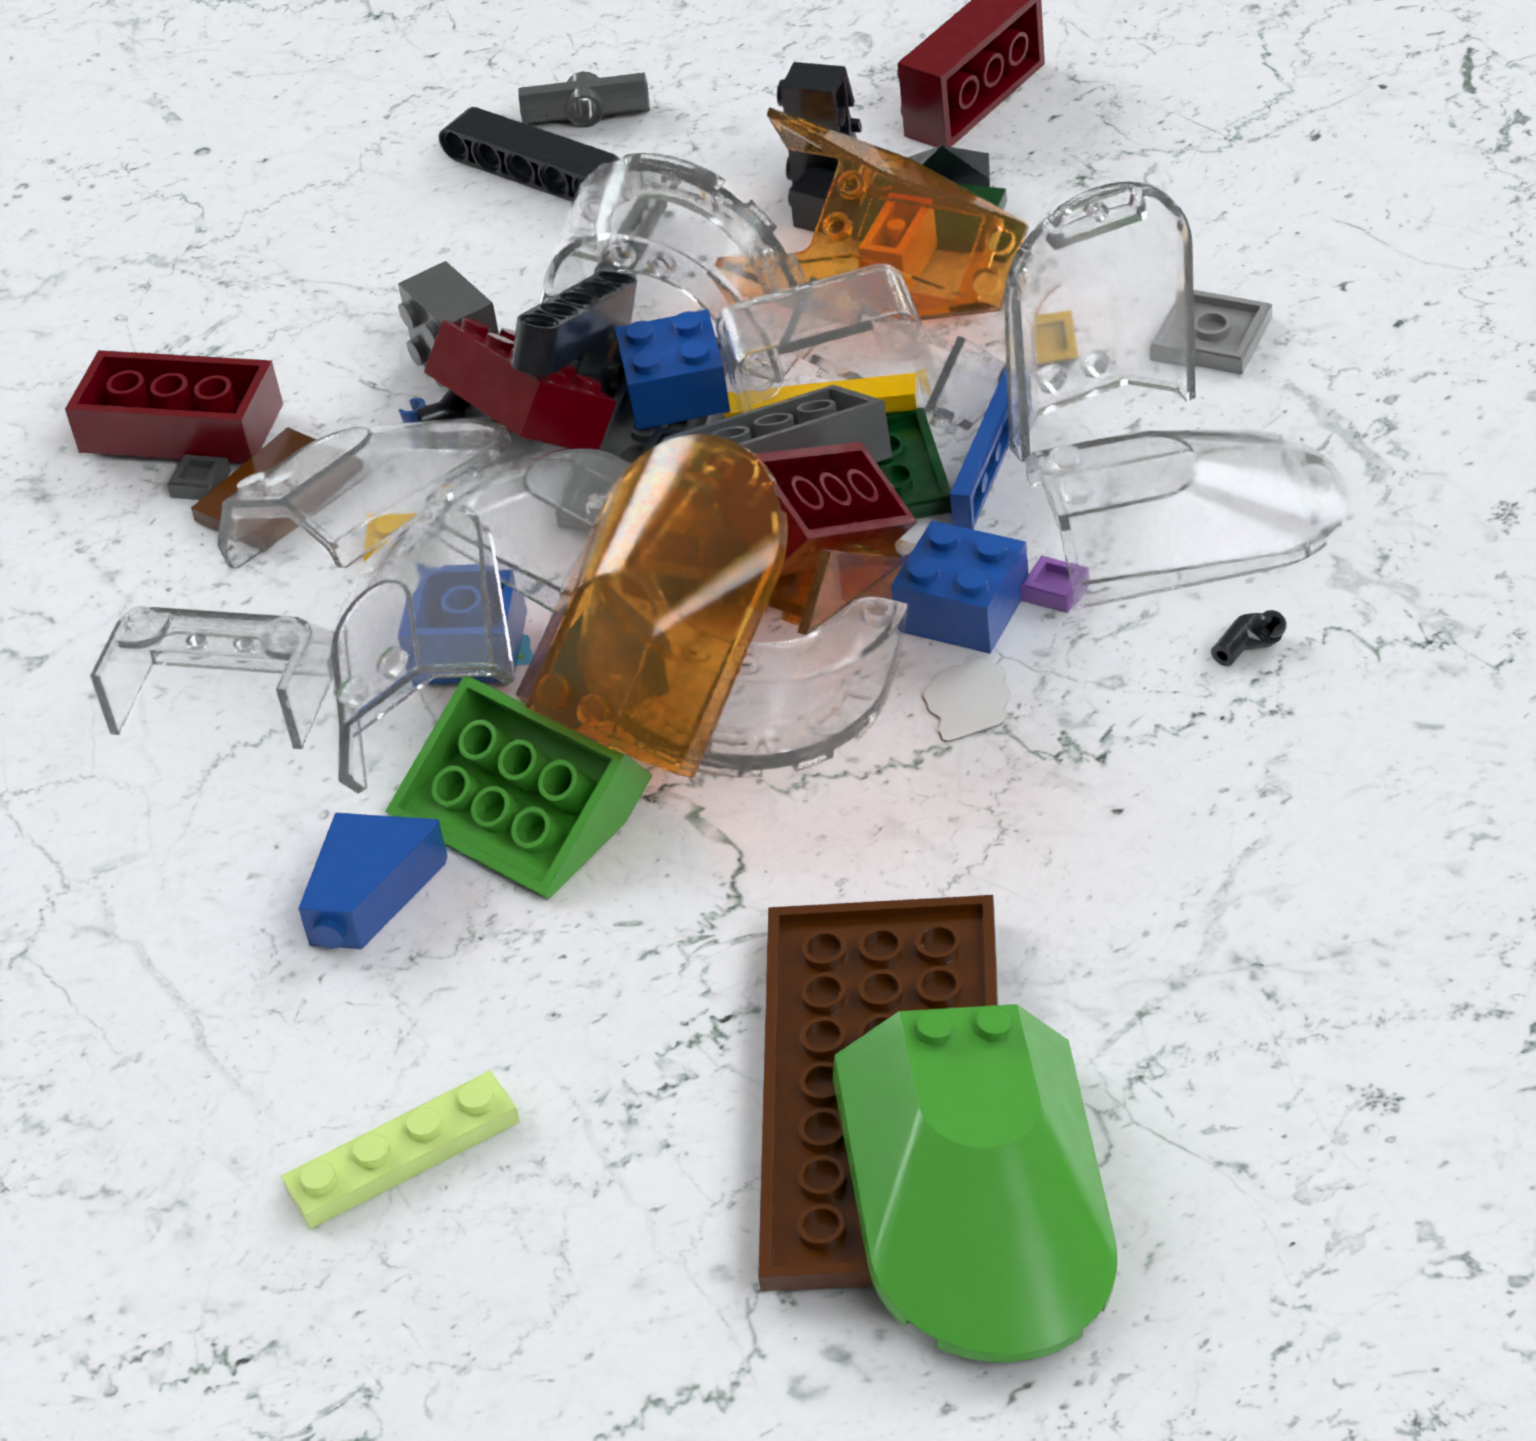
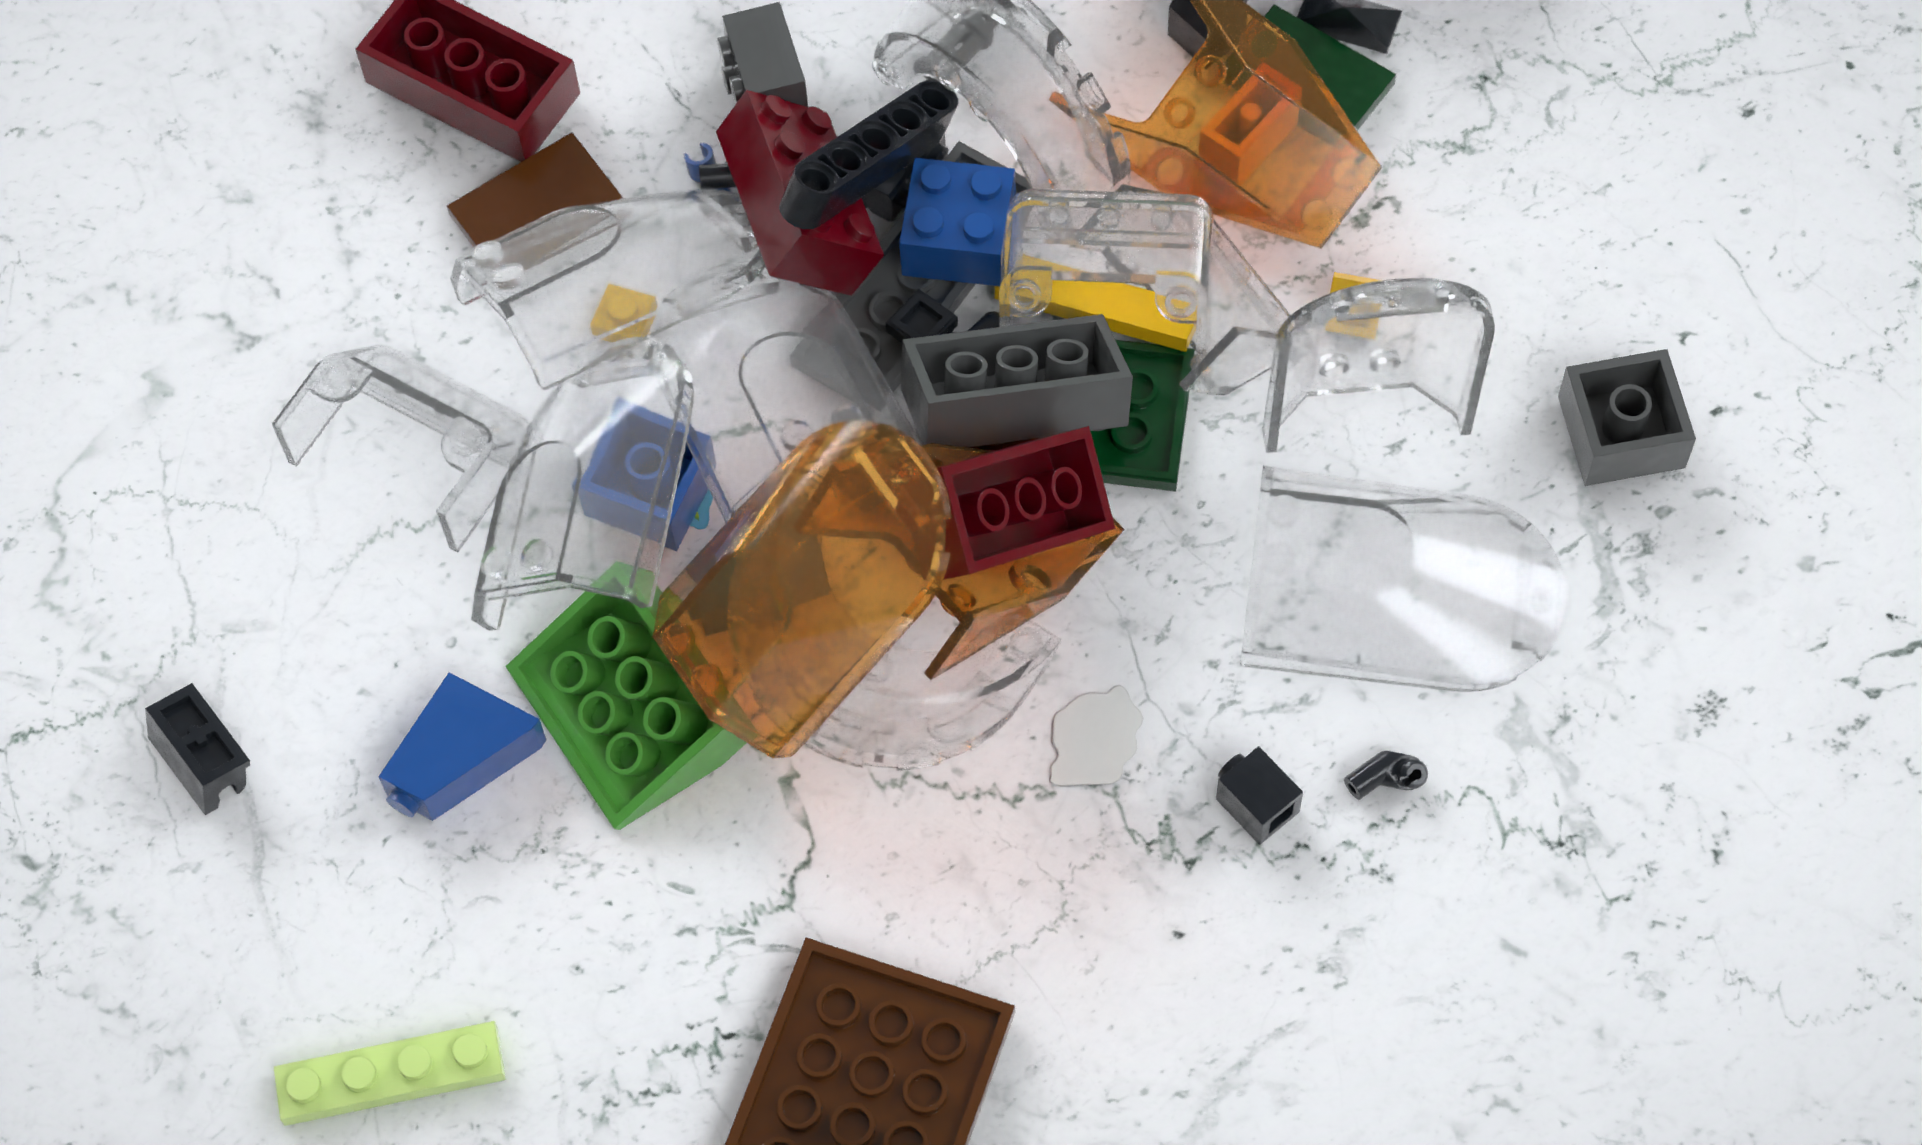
camera: 15 degrees right, 20 degrees up
(104, 954) = (196, 746): none -> black hinge
(197, 476) = (469, 161): dark grey tile -> none
(961, 585) = (1135, 609): blue brick -> none
(982, 461) = (1218, 454): blue tile -> none
(1048, 585) = (1224, 629): medium lavender tile -> none
(1140, 679) = (1258, 794): none -> black brick
(1227, 330) = (1531, 351): light grey tile -> none
(1326, 333) = (1626, 417): none -> dark grey brick

